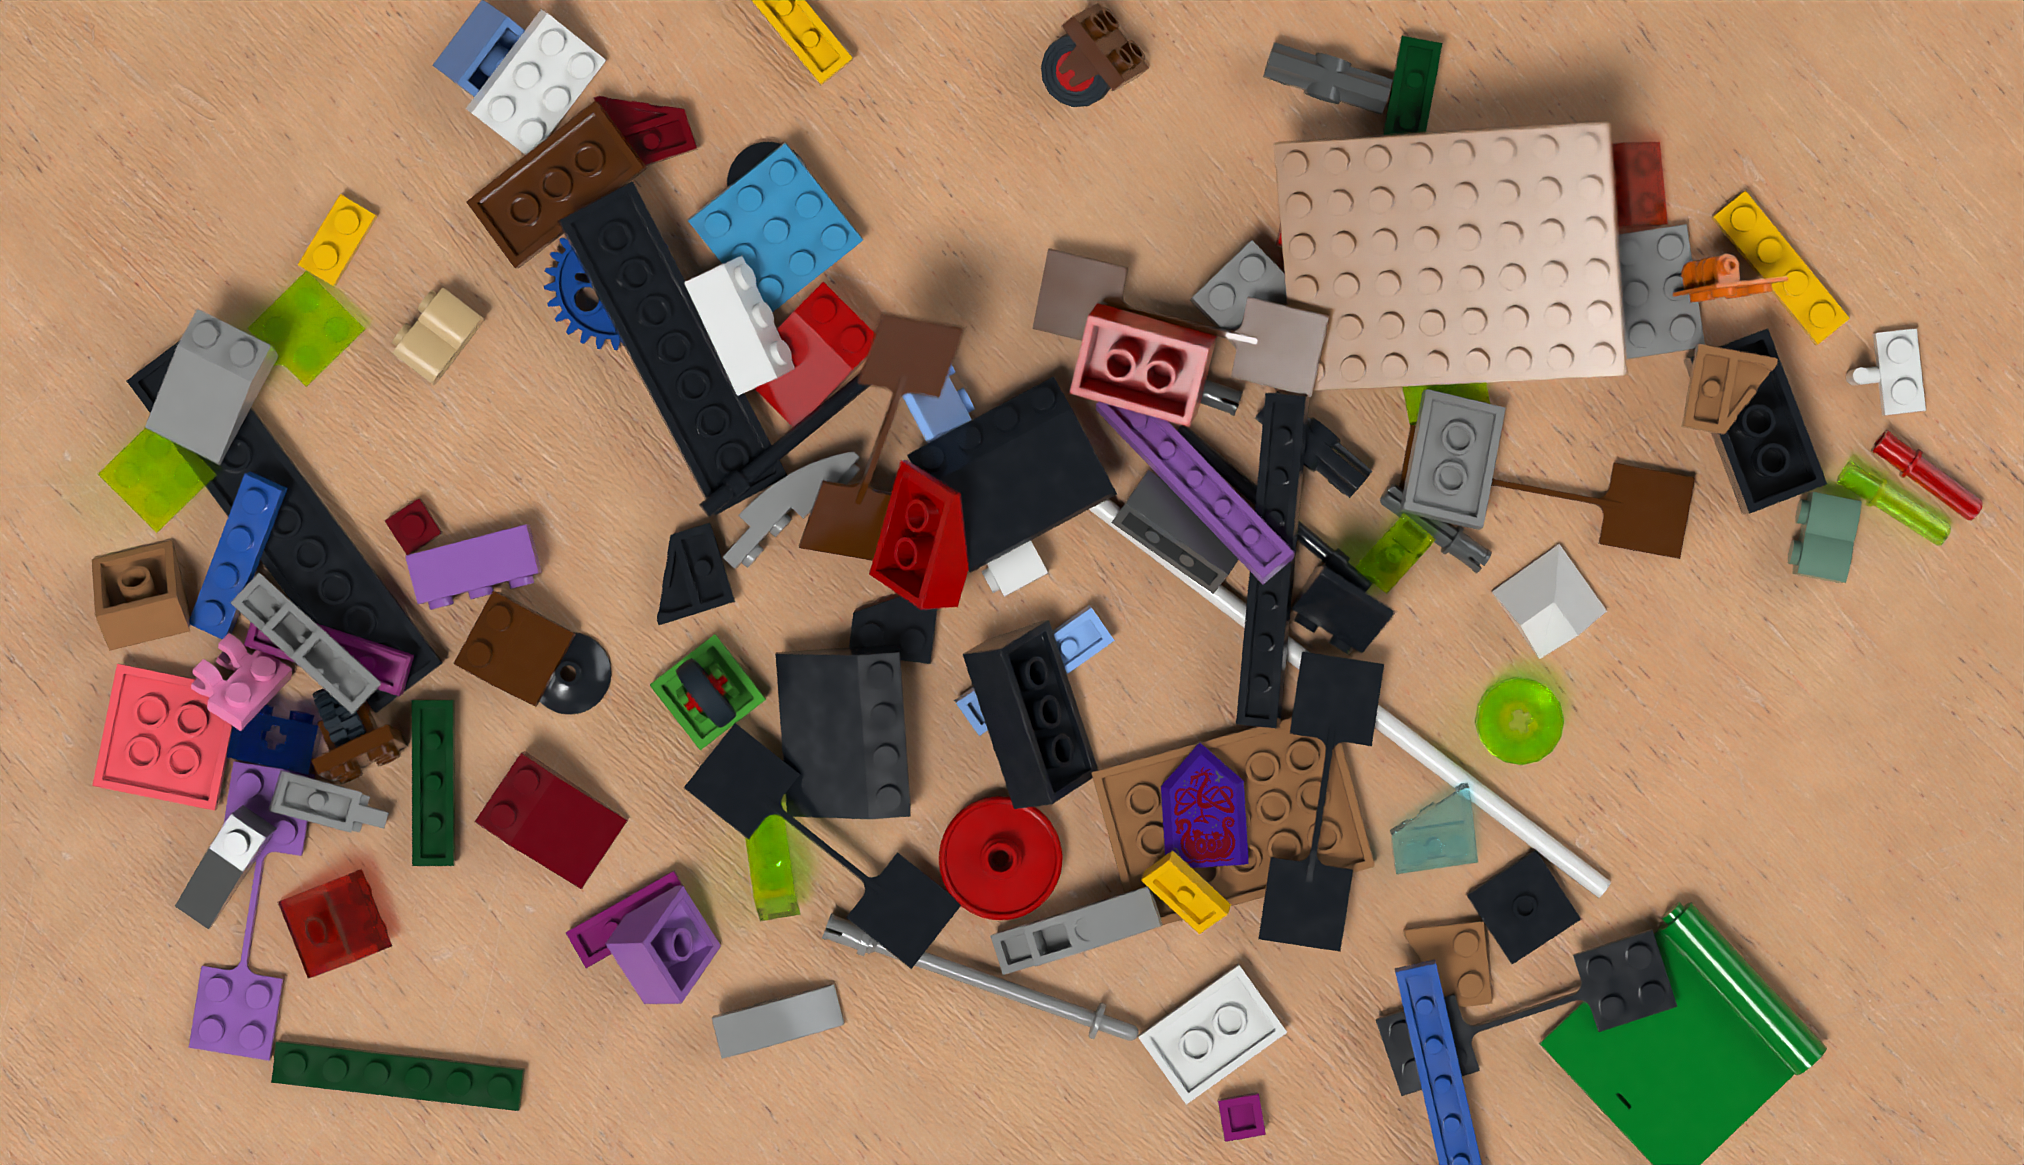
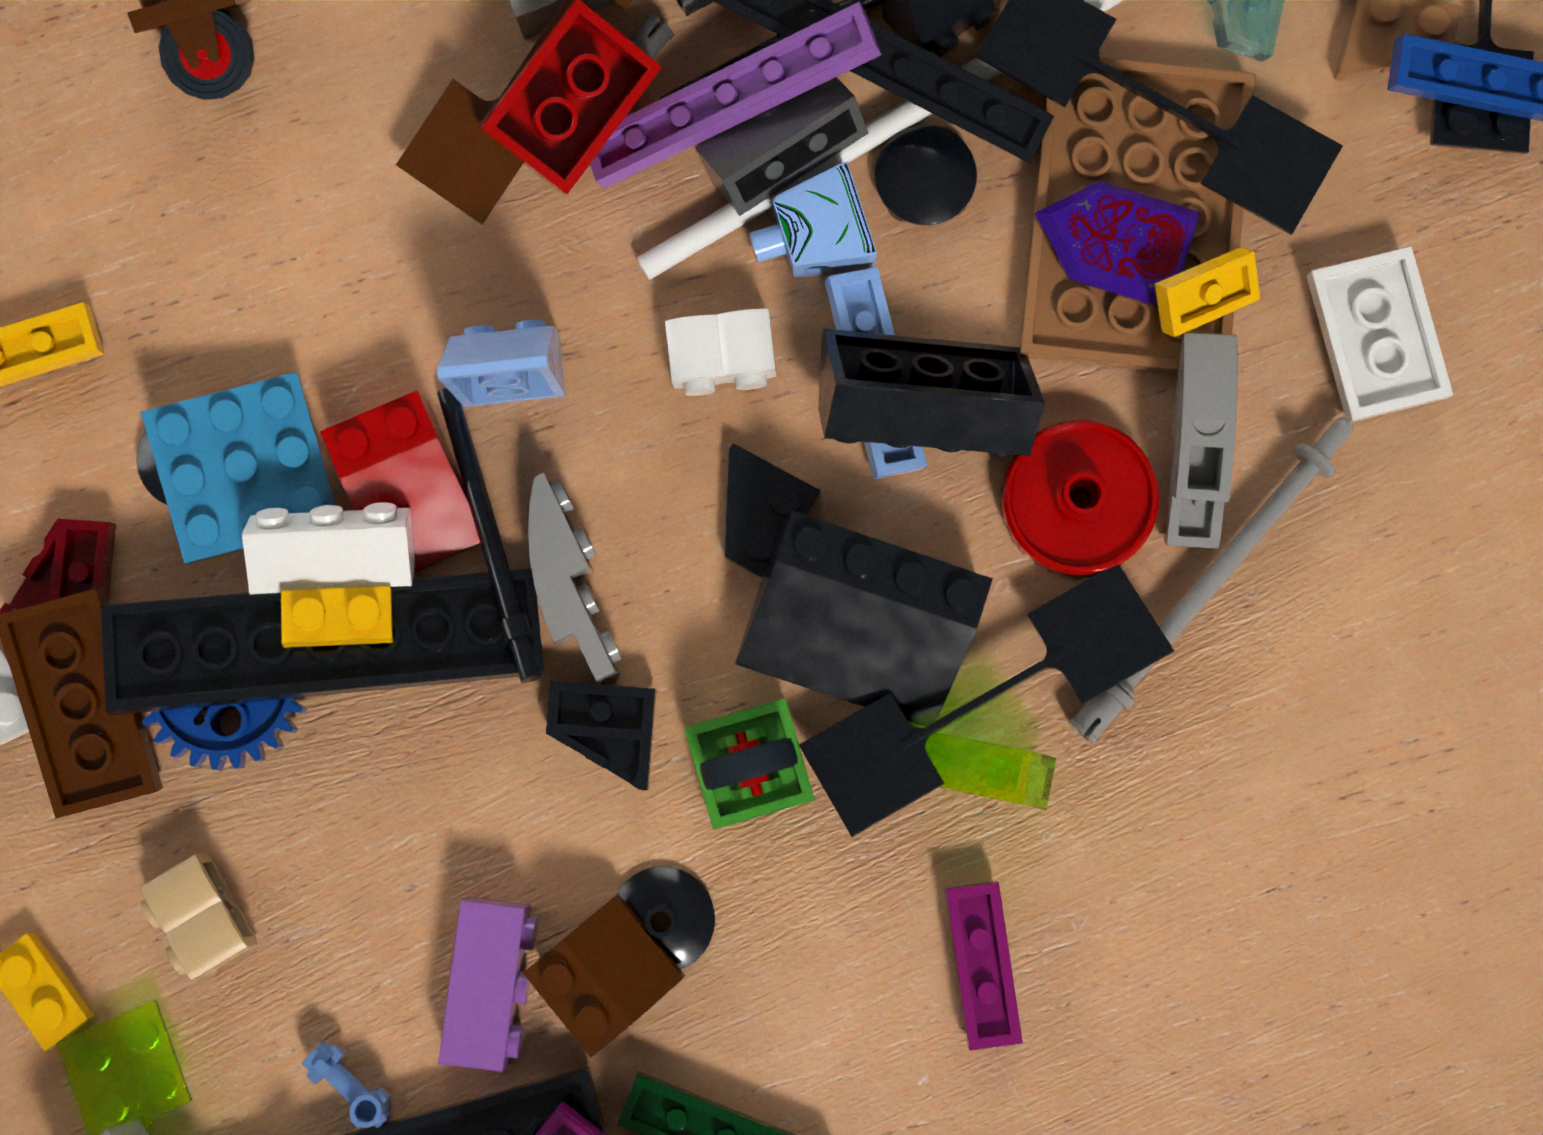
camera: 65 degrees left, 5 degrees down
(353, 516) = (367, 1106): none -> medium blue bar
(413, 526) = (412, 1036): dark red plate -> none
(551, 820) = (826, 1014): dark red slope -> none
(664, 947) = (1035, 938): medium lavender slope -> none
(693, 352) = (336, 616): none -> yellow plate
(777, 1021) = (1173, 838): light grey slope -> none
(906, 359) = (436, 346): reddish brown hinge -> none
(922, 541) = (668, 429): red slope -> none
(1017, 471) = (636, 303): black slope -> none
(1127, 583) = (818, 227): none -> light blue torso
(1202, 648) = (925, 175): none -> black dish
(1241, 1117) = (1489, 339): magenta plate -> none

